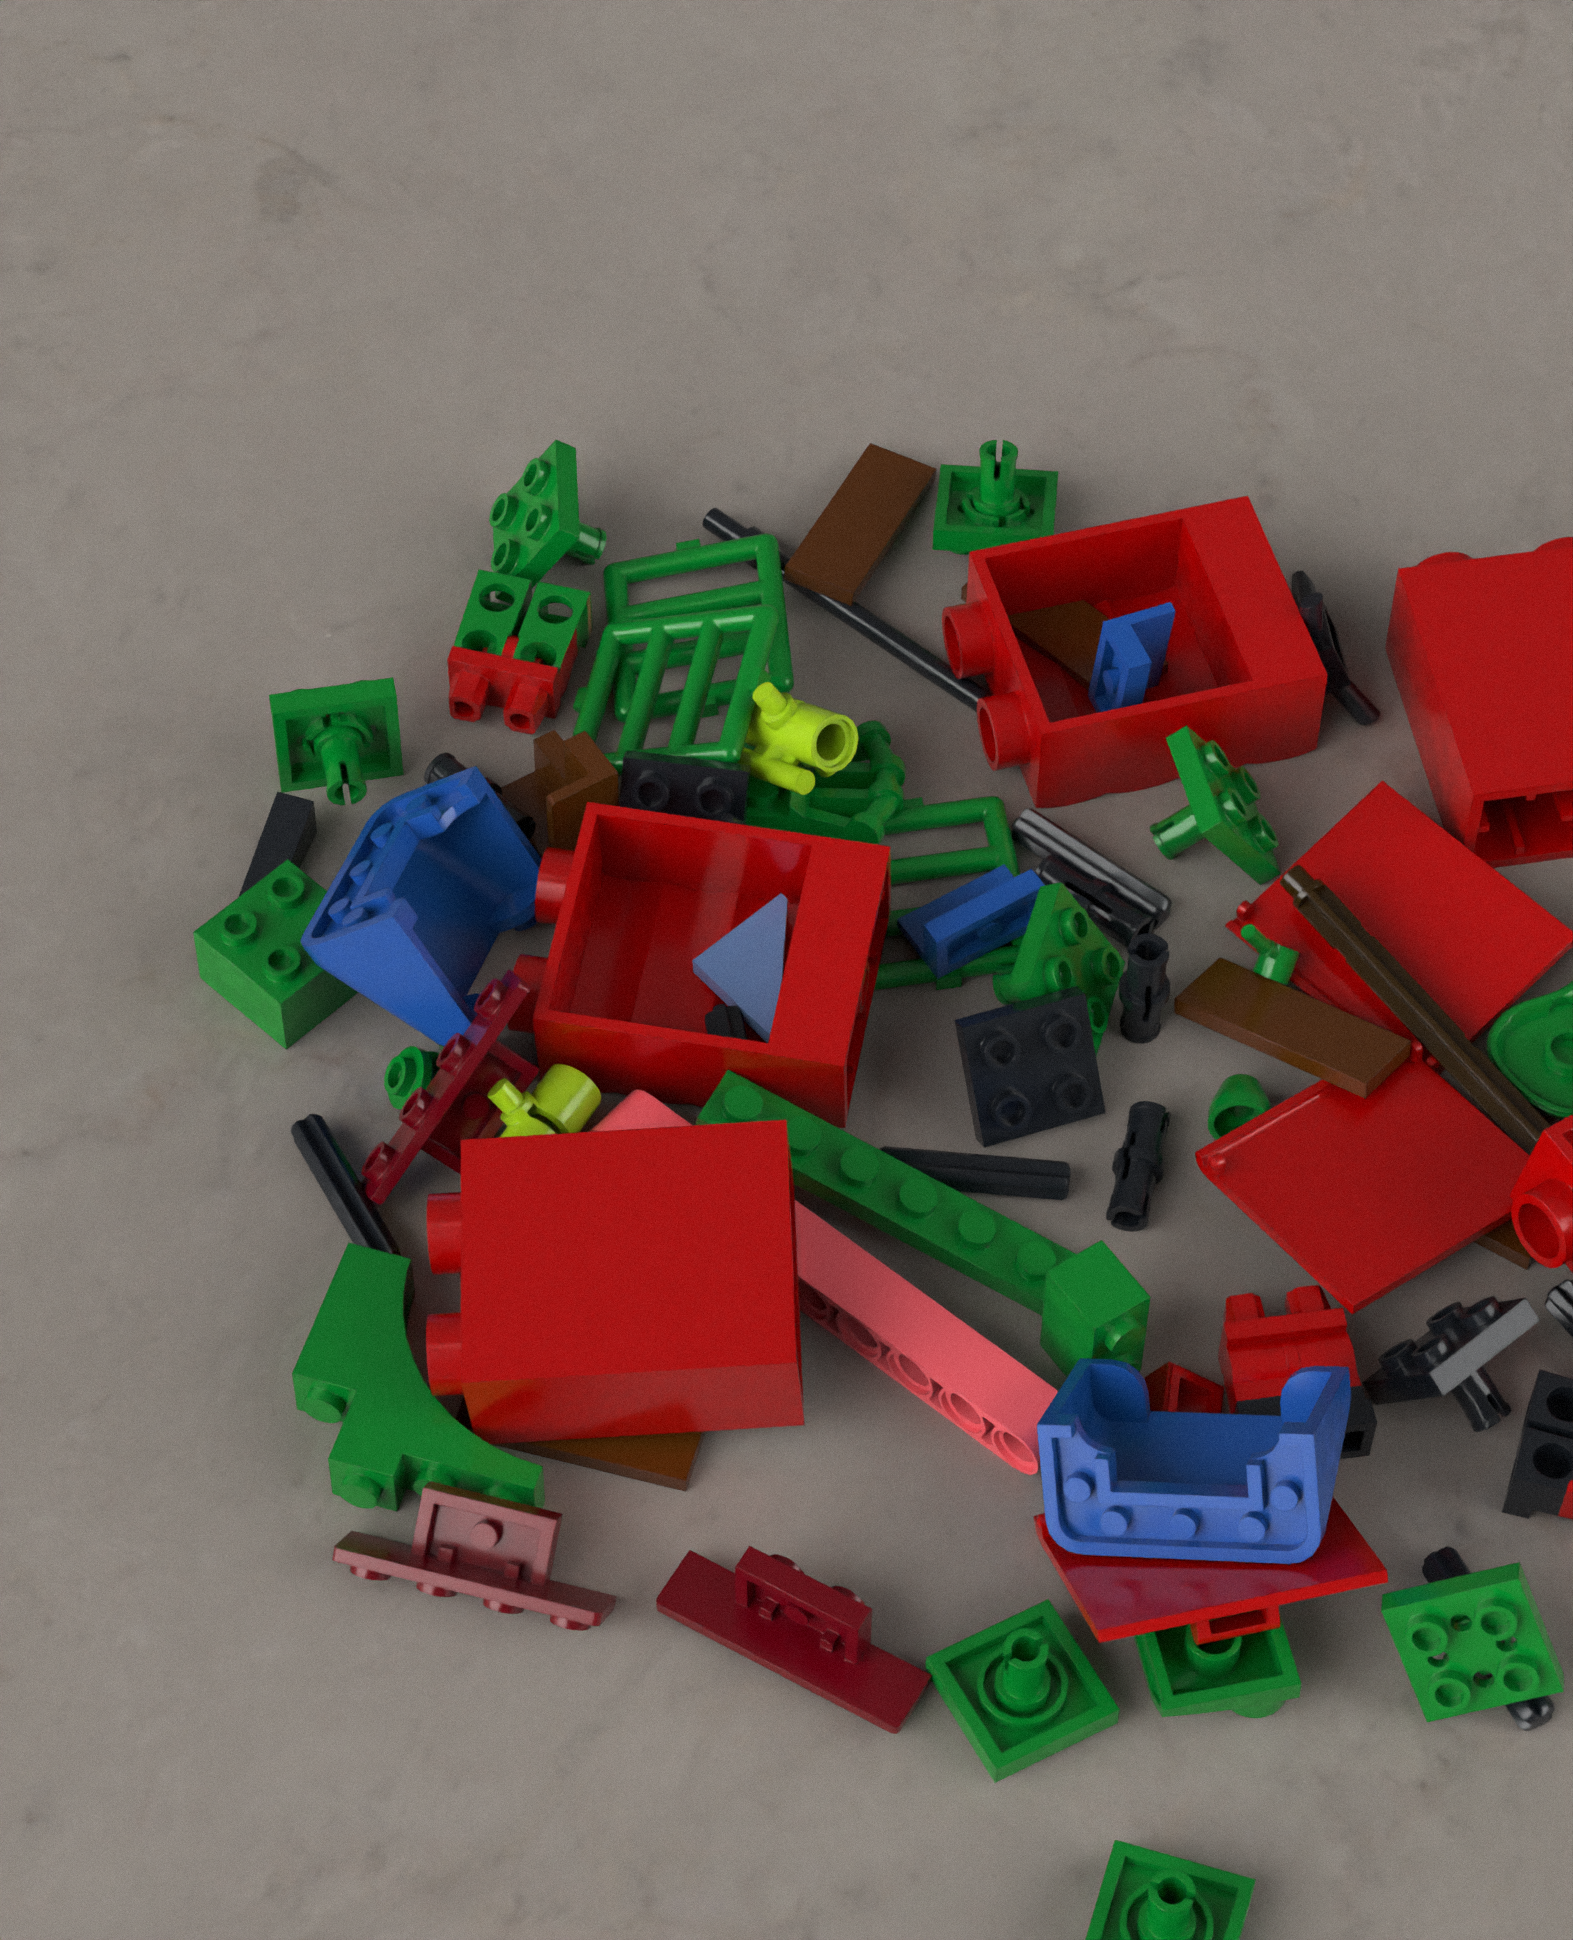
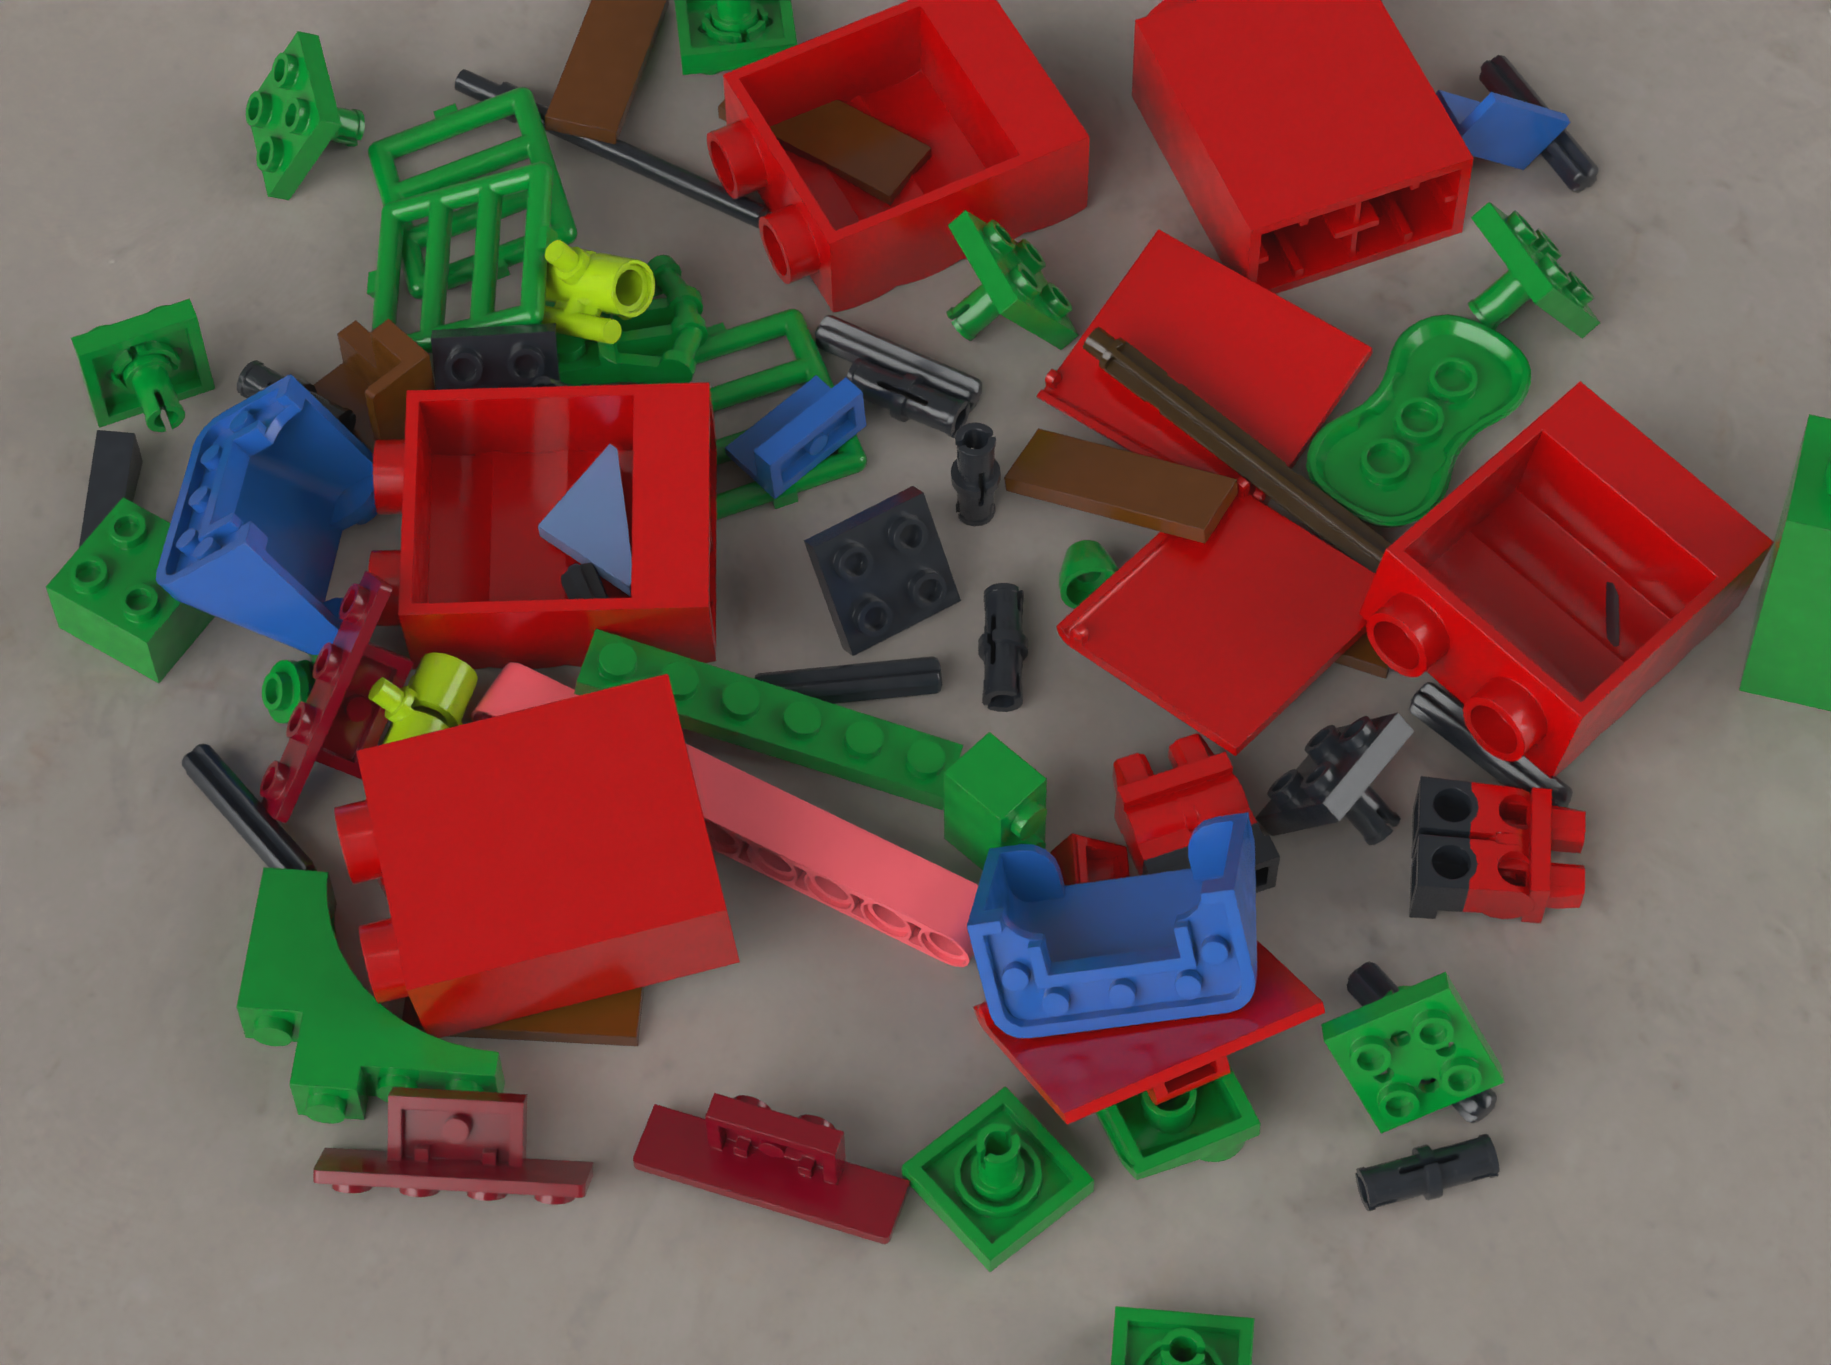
camera: 10 degrees left, 5 degrees up
(517, 652) = (300, 246): hips -> none
(1062, 952) = (890, 456): green plate -> none
(1130, 657) = (896, 153): blue panel -> none
(1274, 959) = (1090, 422): green hand -> none
(1330, 651) = (1075, 95): black piece -> none
(1466, 1769) = (1427, 1172): none -> black pin

